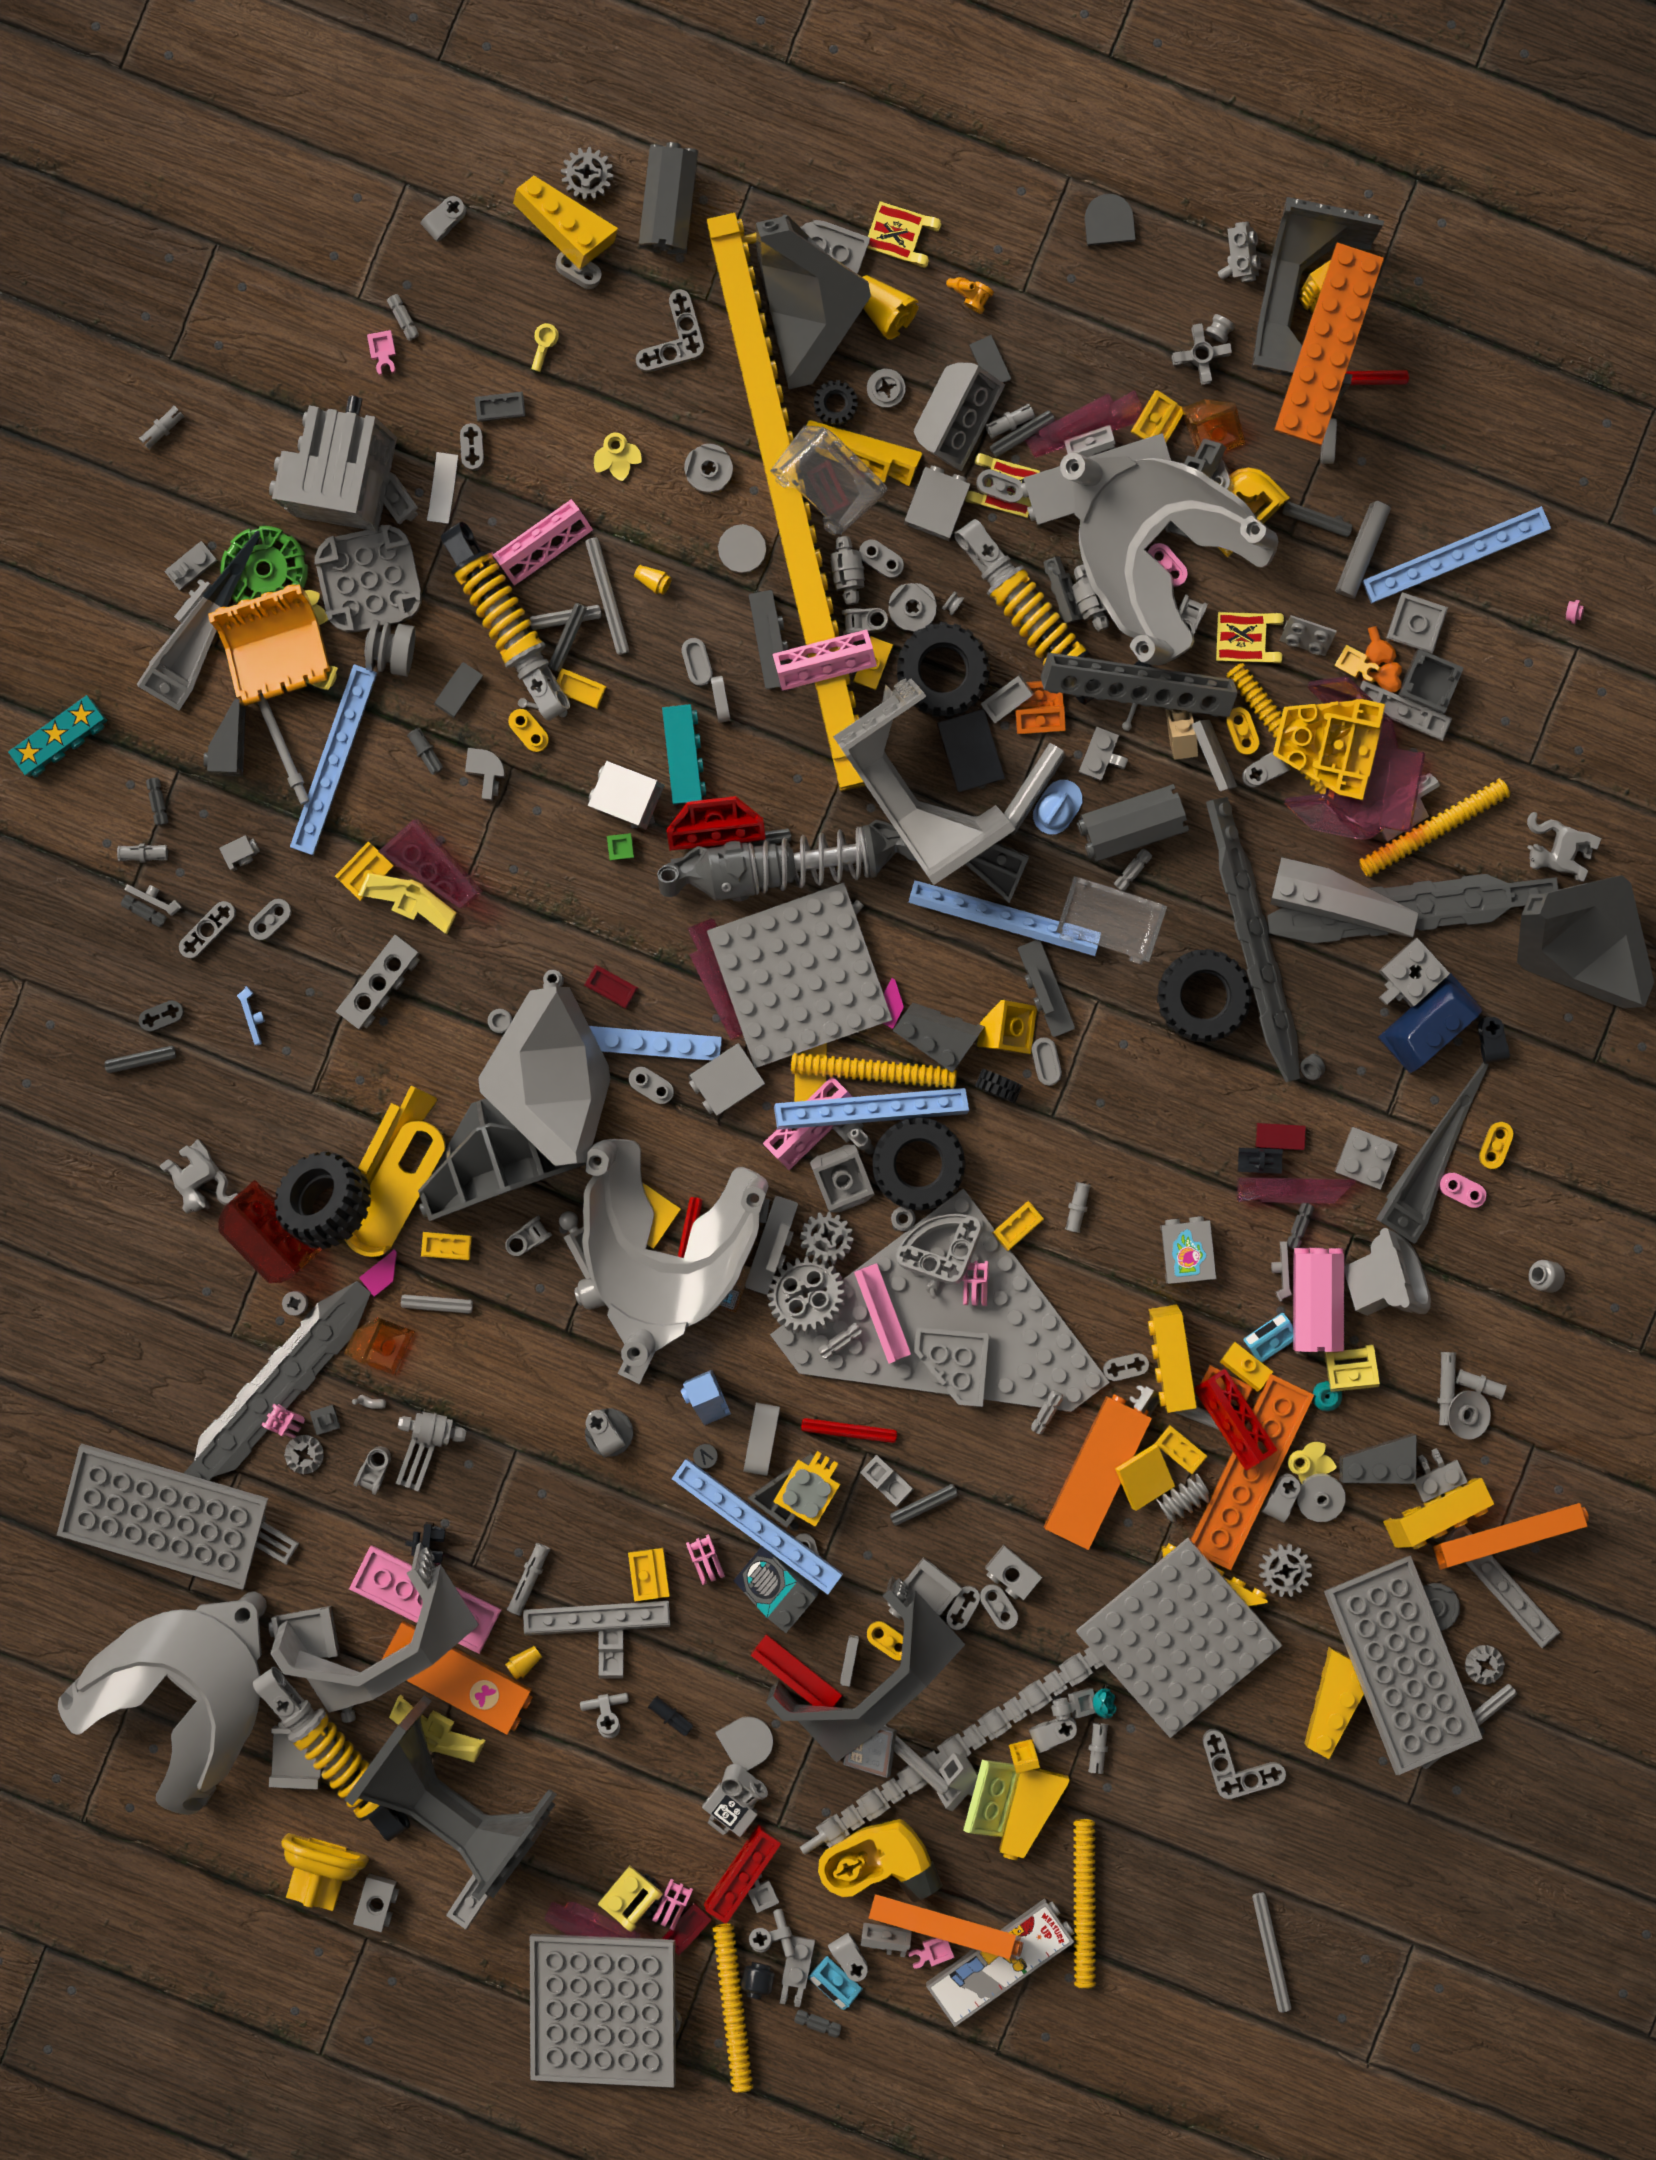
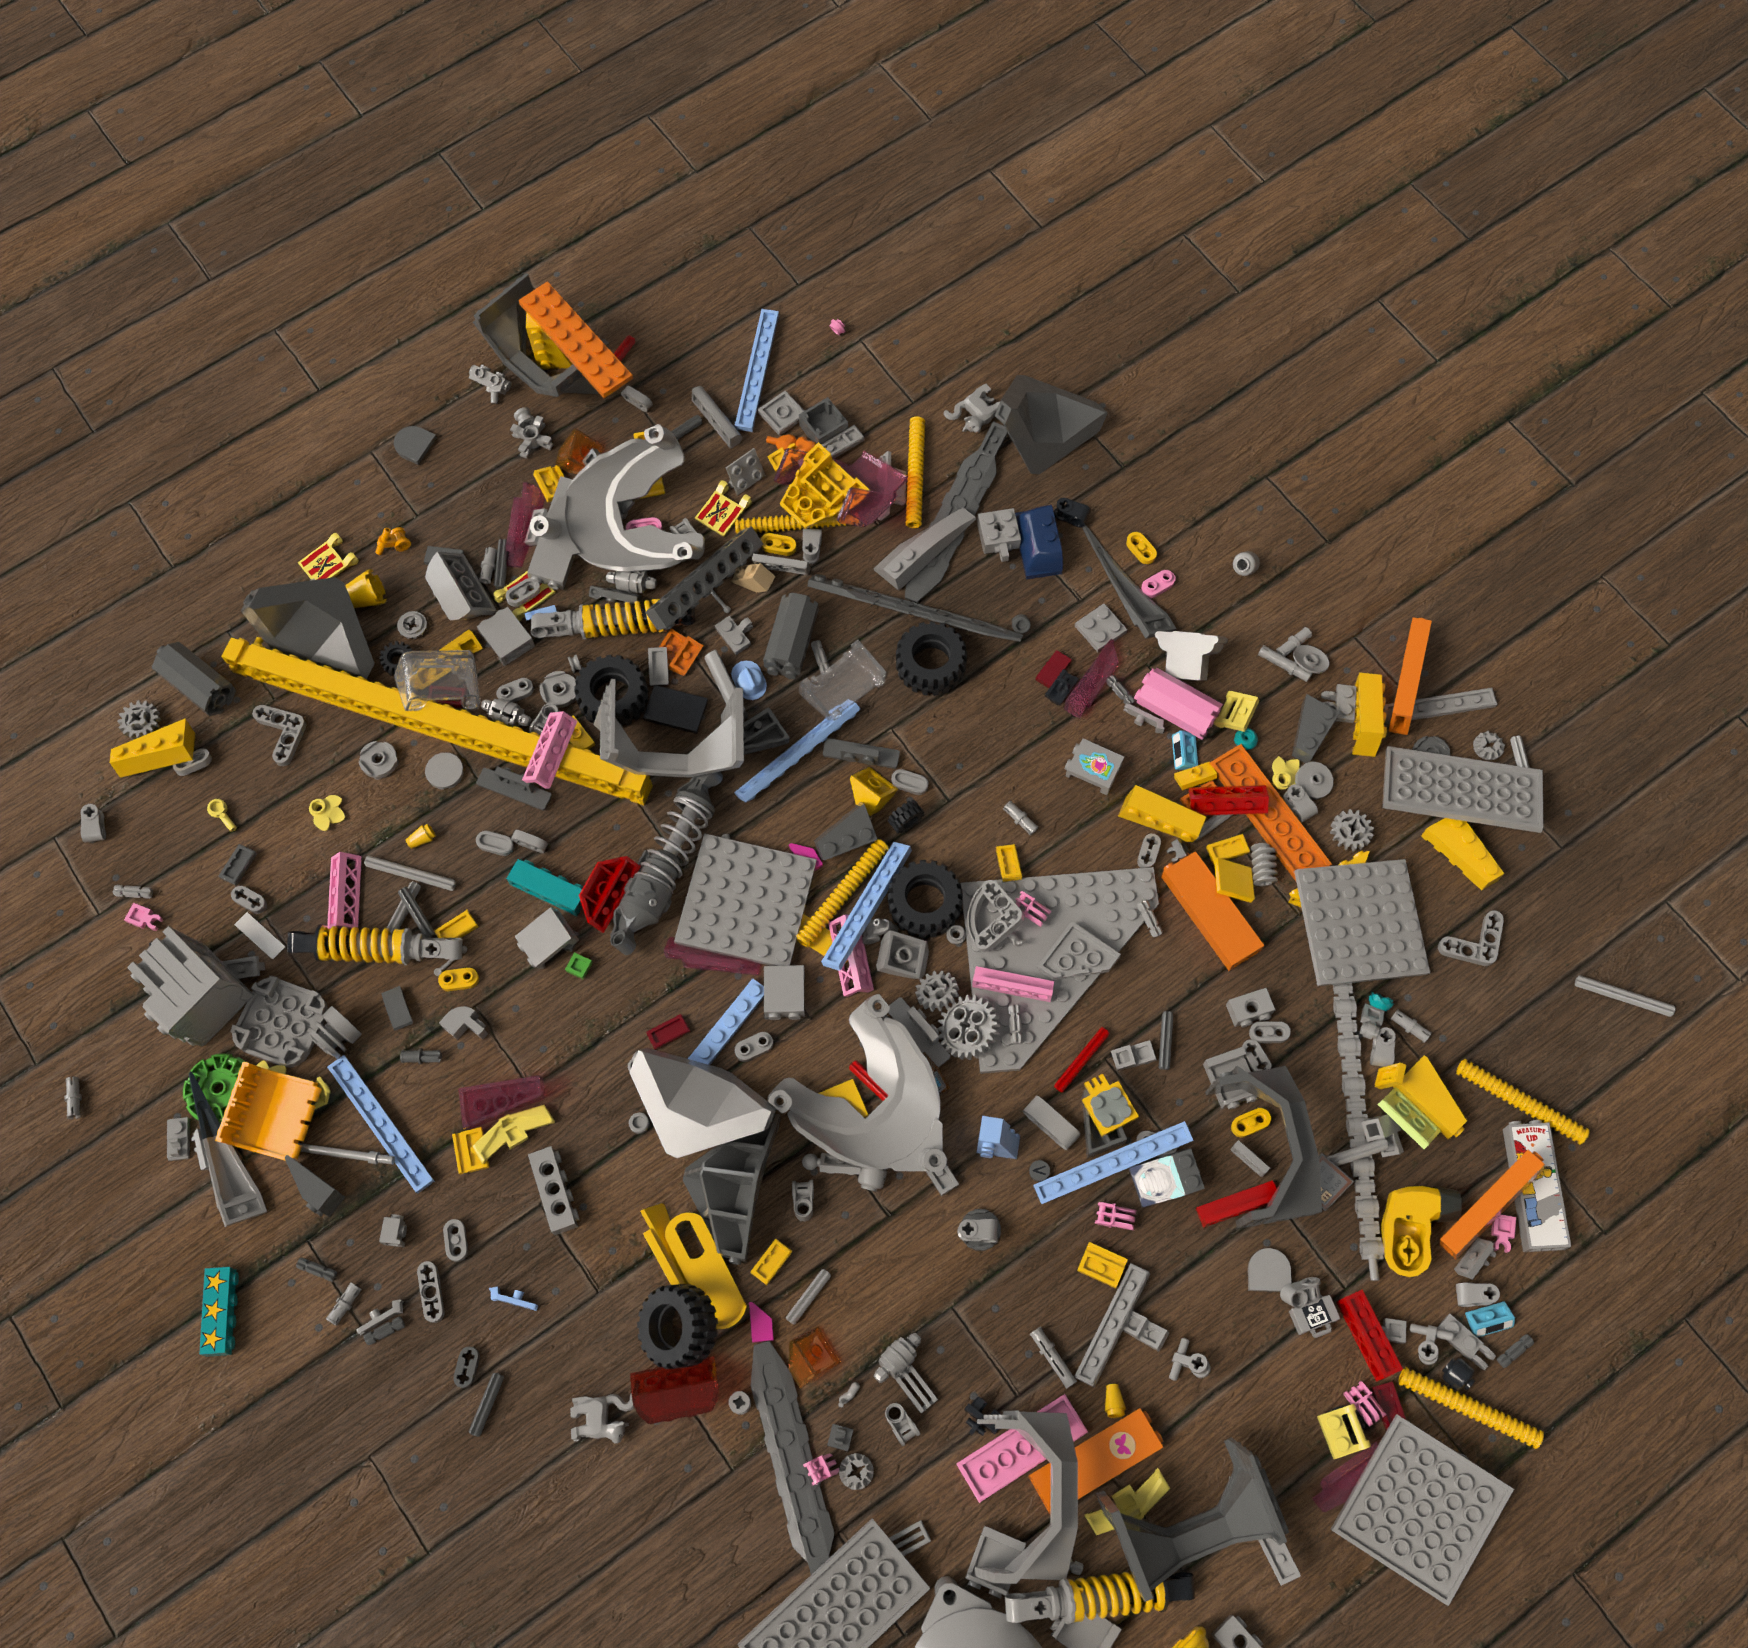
camera: 55 degrees left, 20 degrees down
(670, 1716) = (1217, 1315): black axle -> none
(994, 527) = (550, 609): none -> light blue plate

